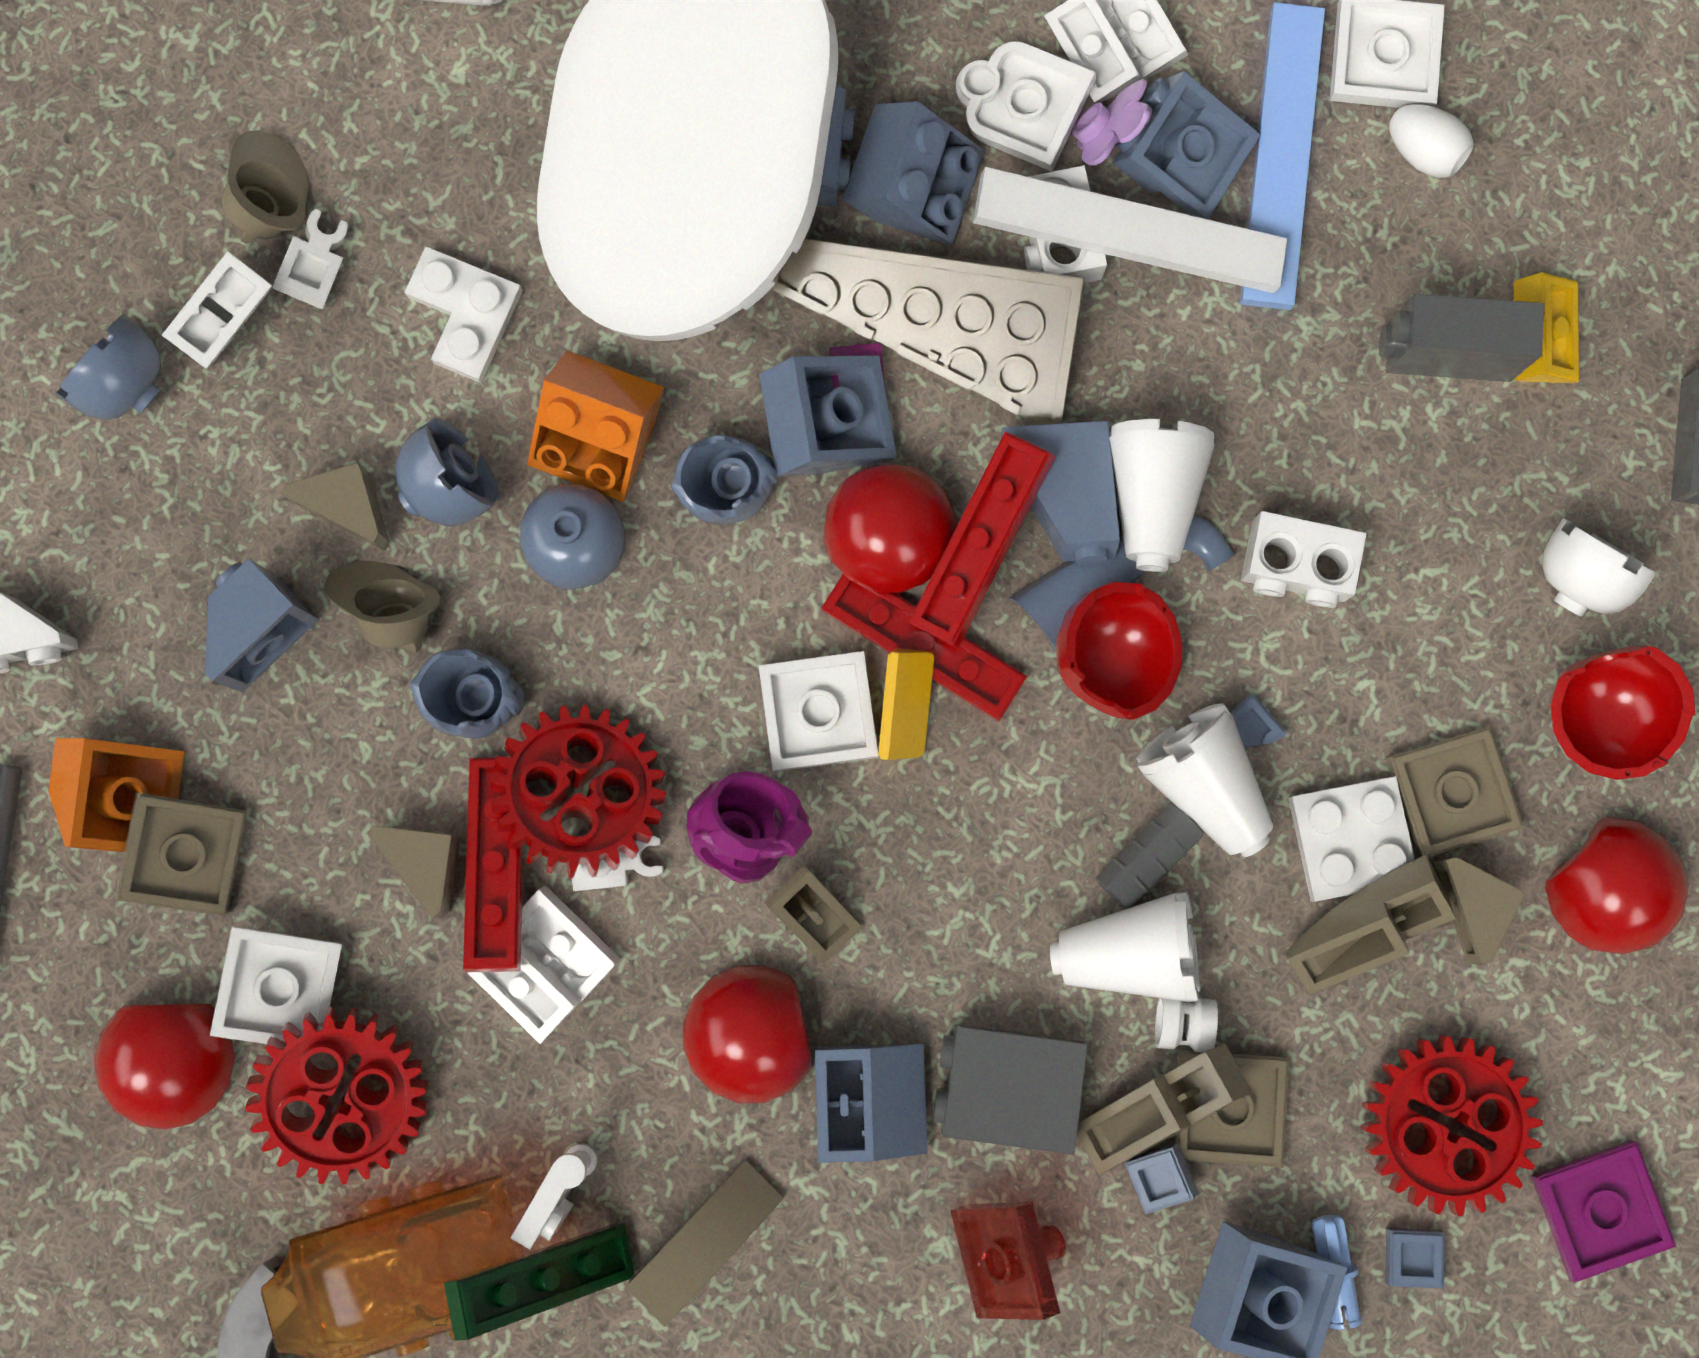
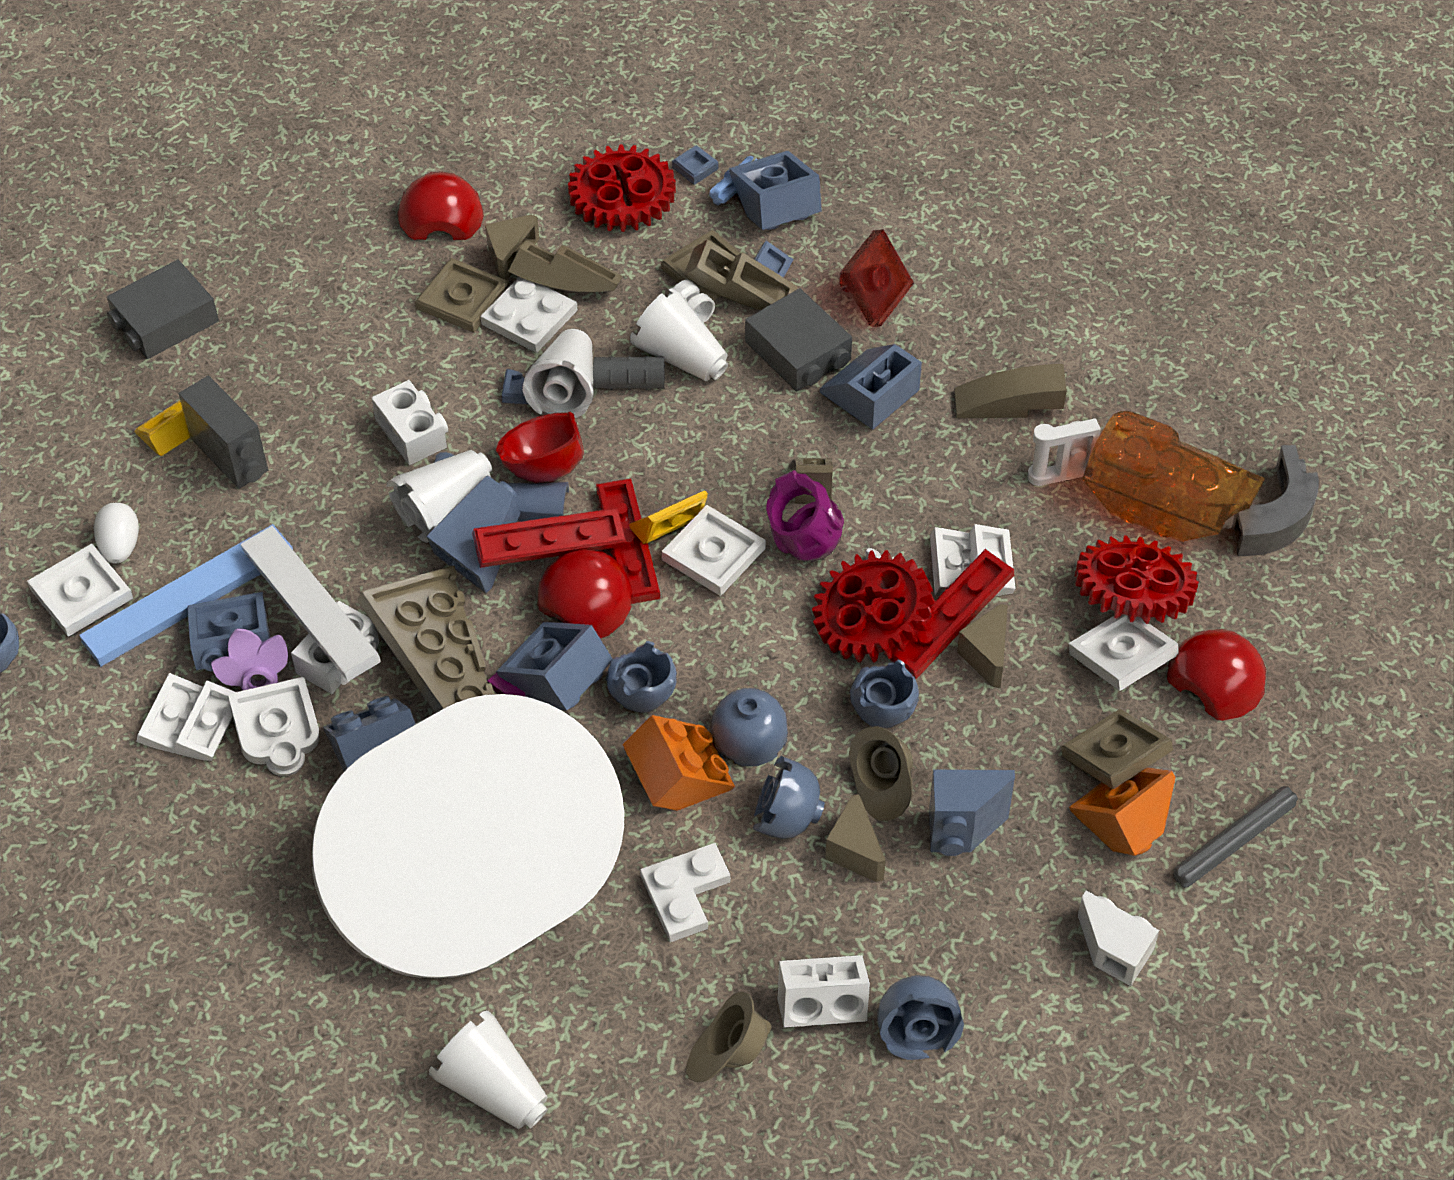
camera: 135 degrees left, 30 degrees down
(309, 266) = (746, 975): white plate -> none
(538, 1281) = (1114, 406): dark green tile -> none
(747, 1035) = (899, 455): red cylinder -> none
(1592, 572) = (295, 308): white cylinder -> none
(1603, 1211) = (596, 121): magenta tile -> none
(1622, 711) = (356, 252): red cylinder -> none

